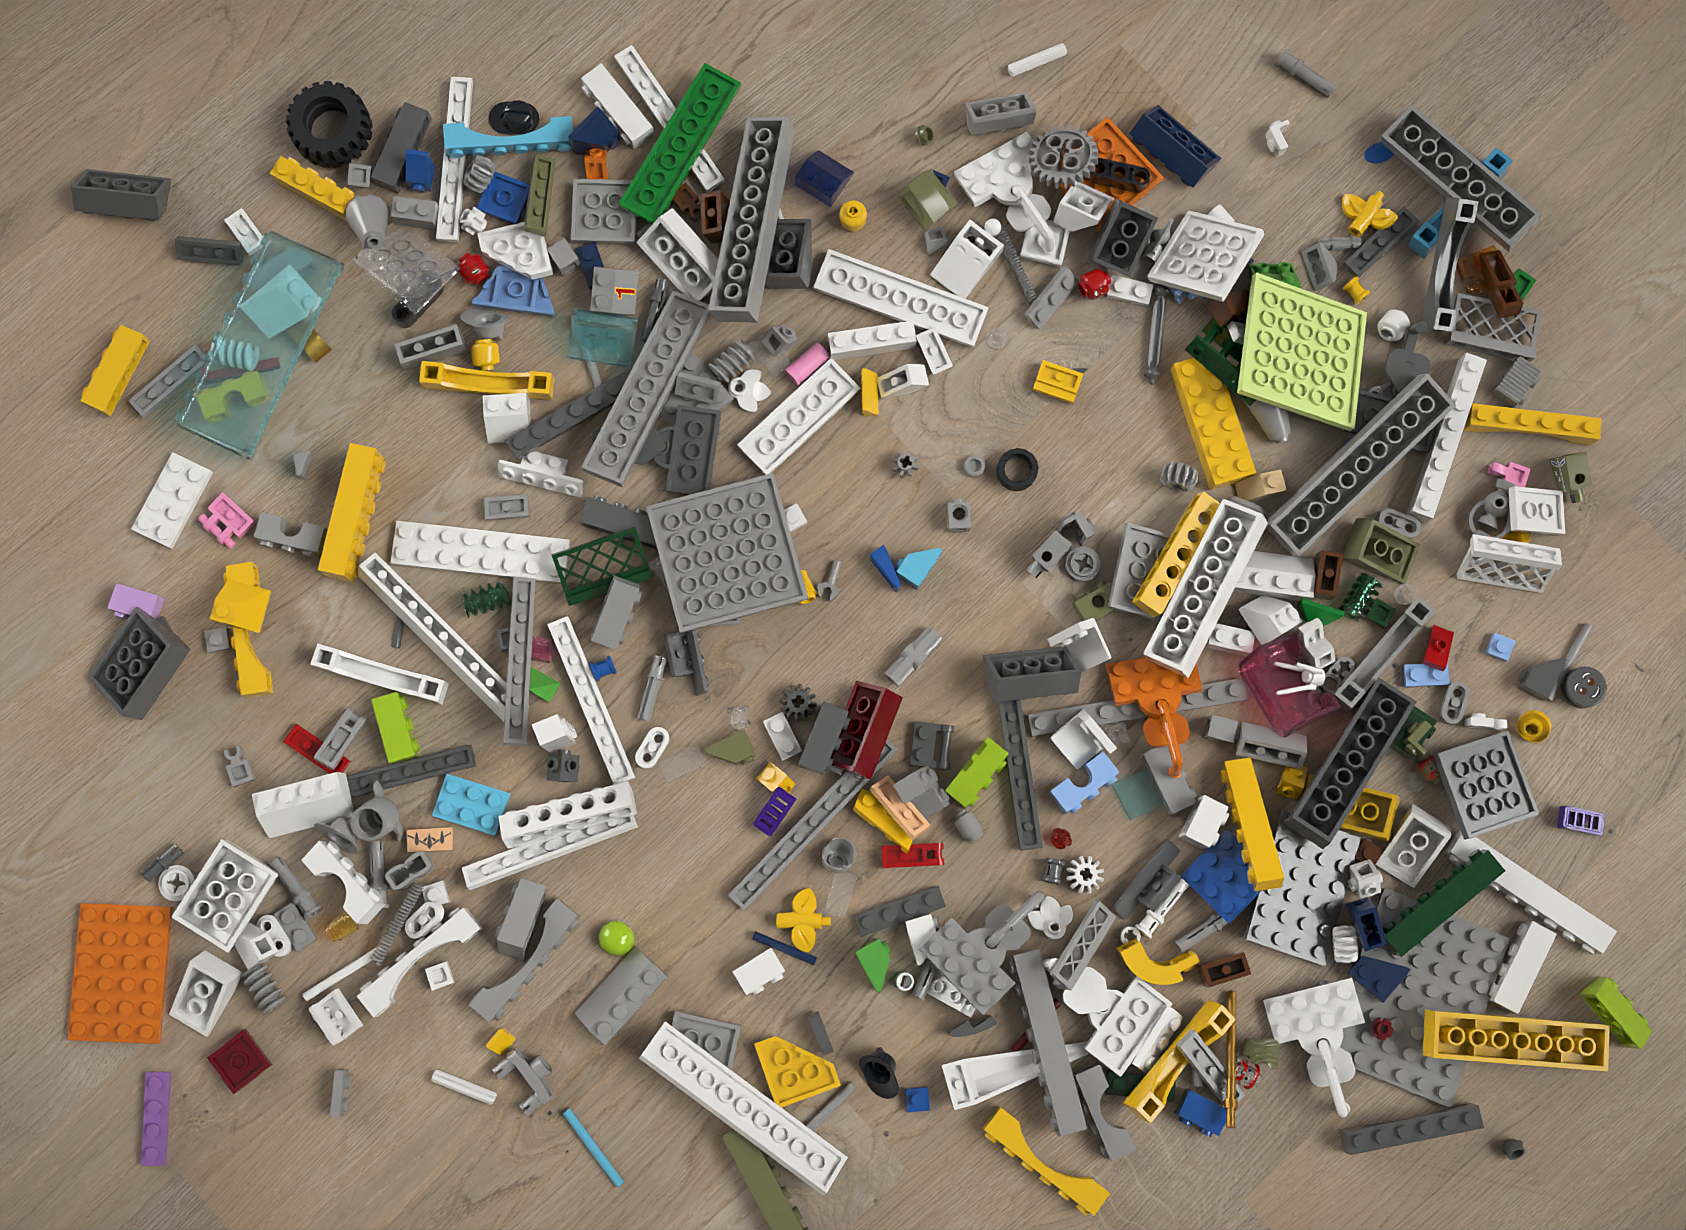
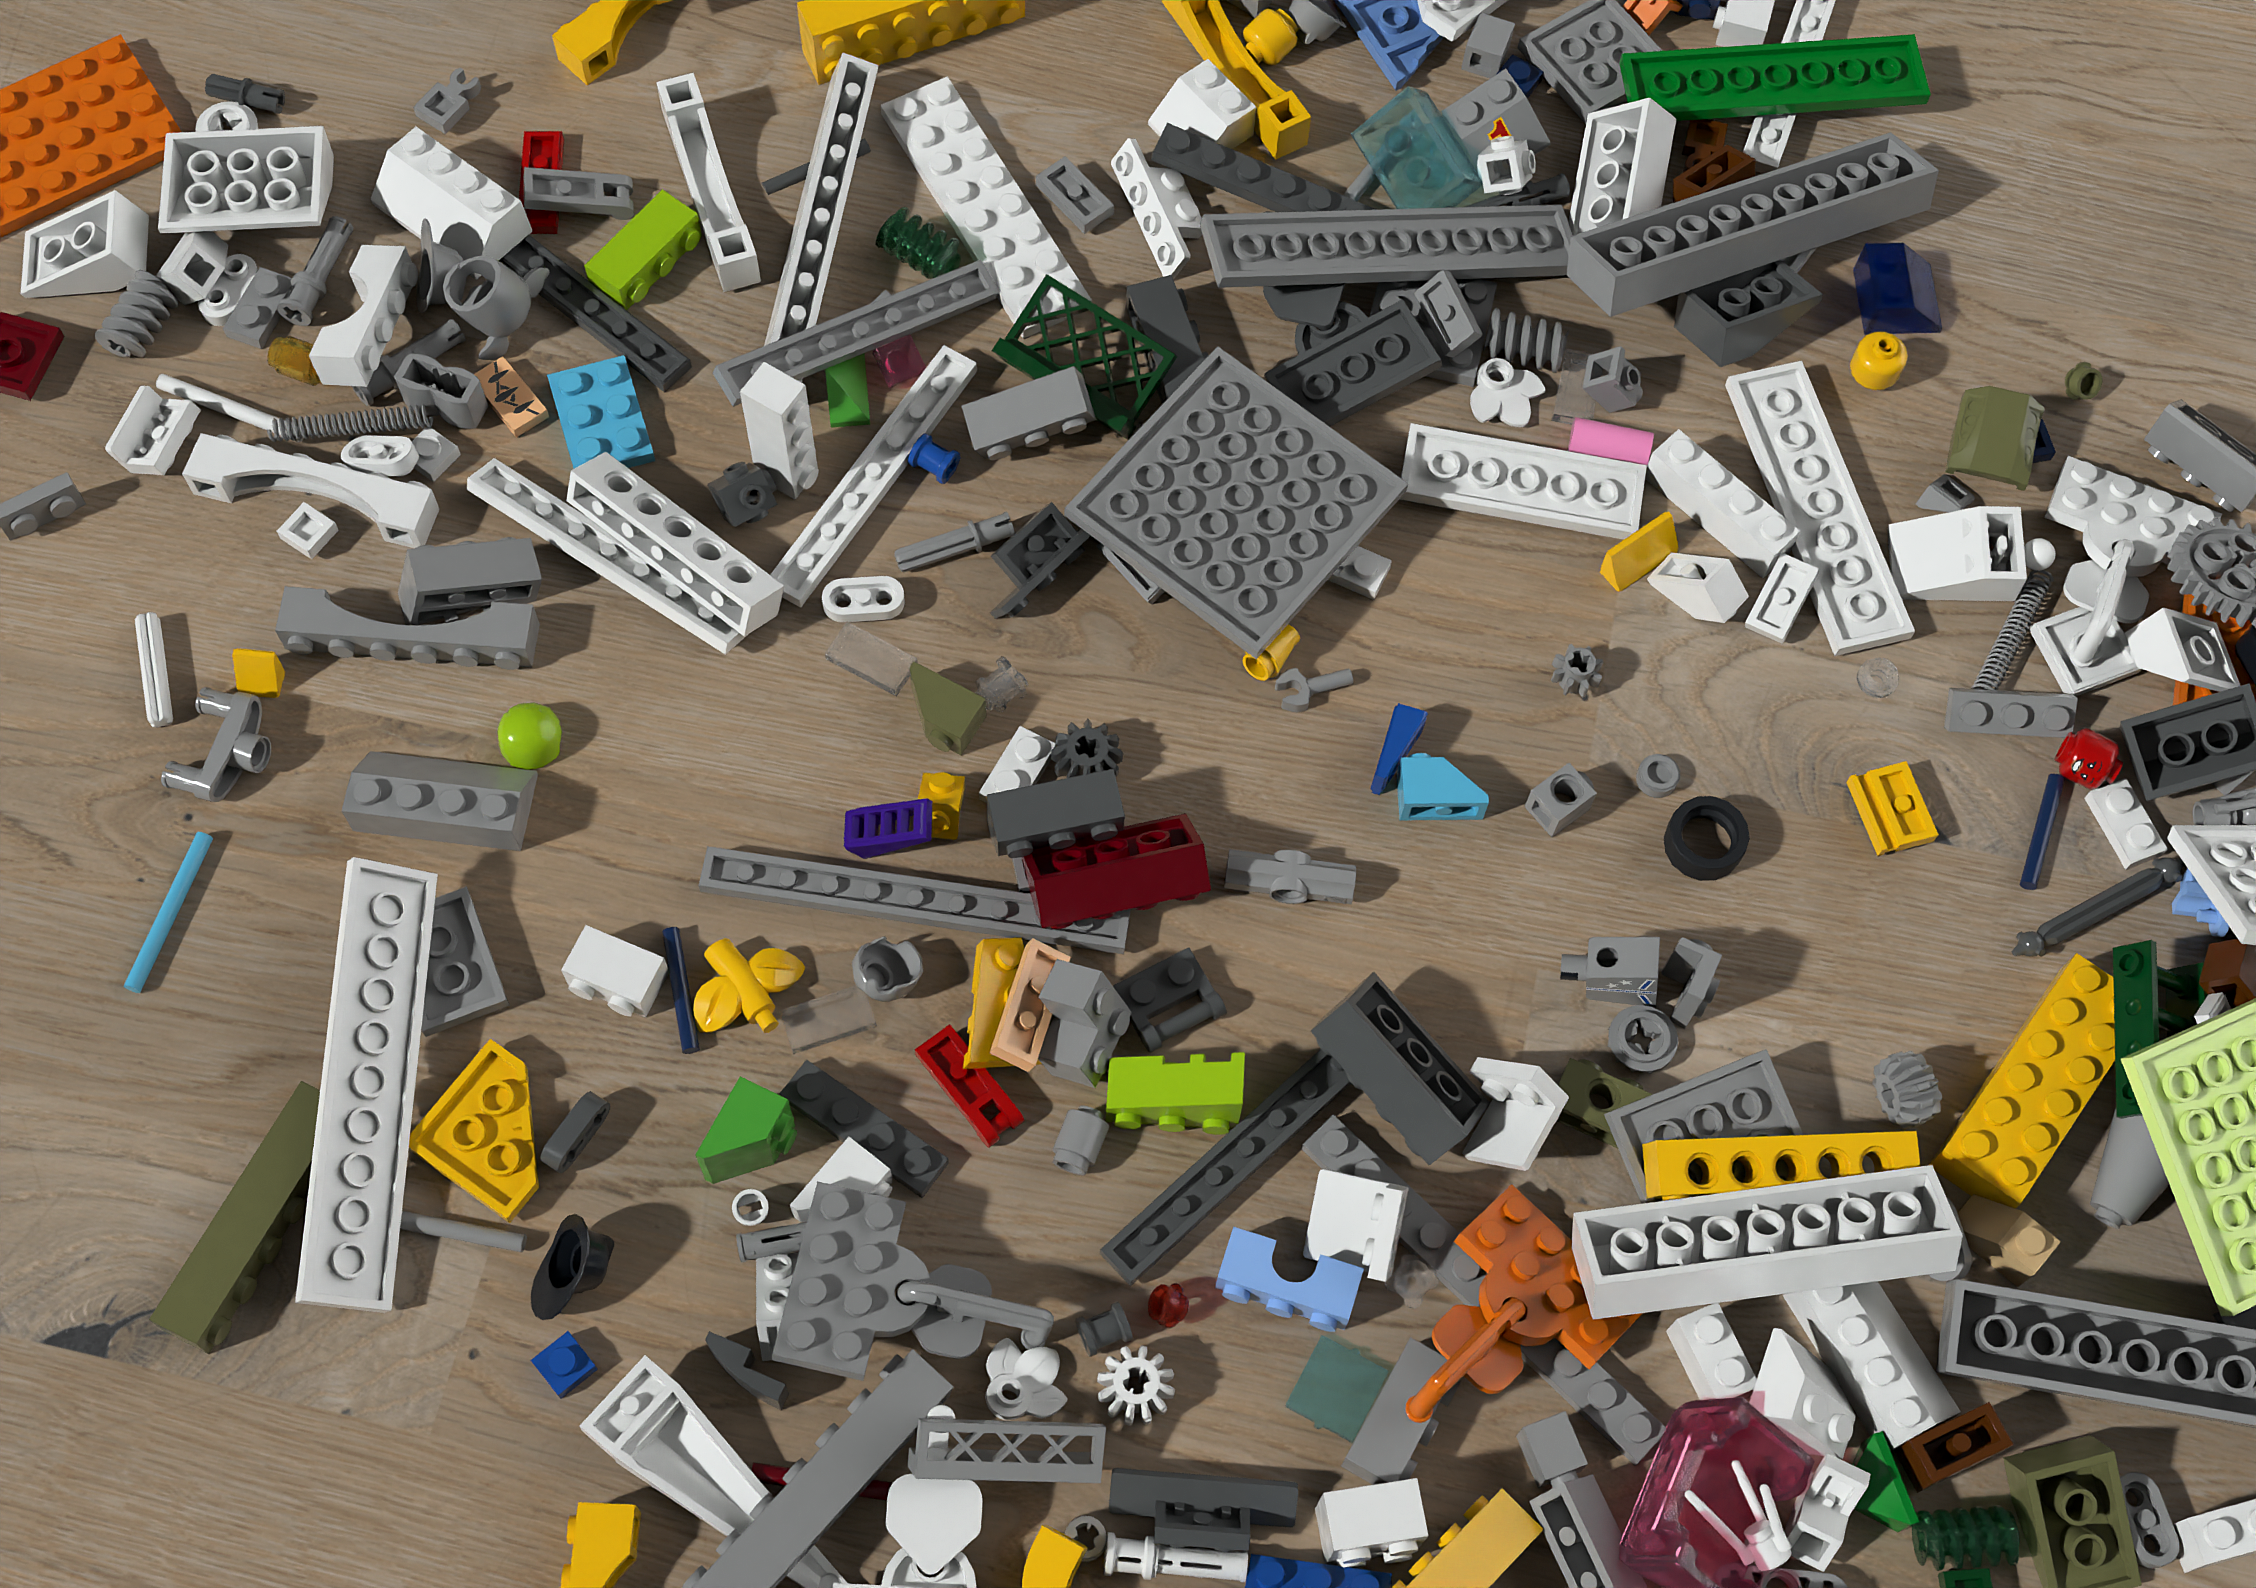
camera: 55 degrees right, 15 degrees down
(640, 303) = (1497, 174): none -> white brick
(1109, 327) = (2042, 832): none -> dark blue bar

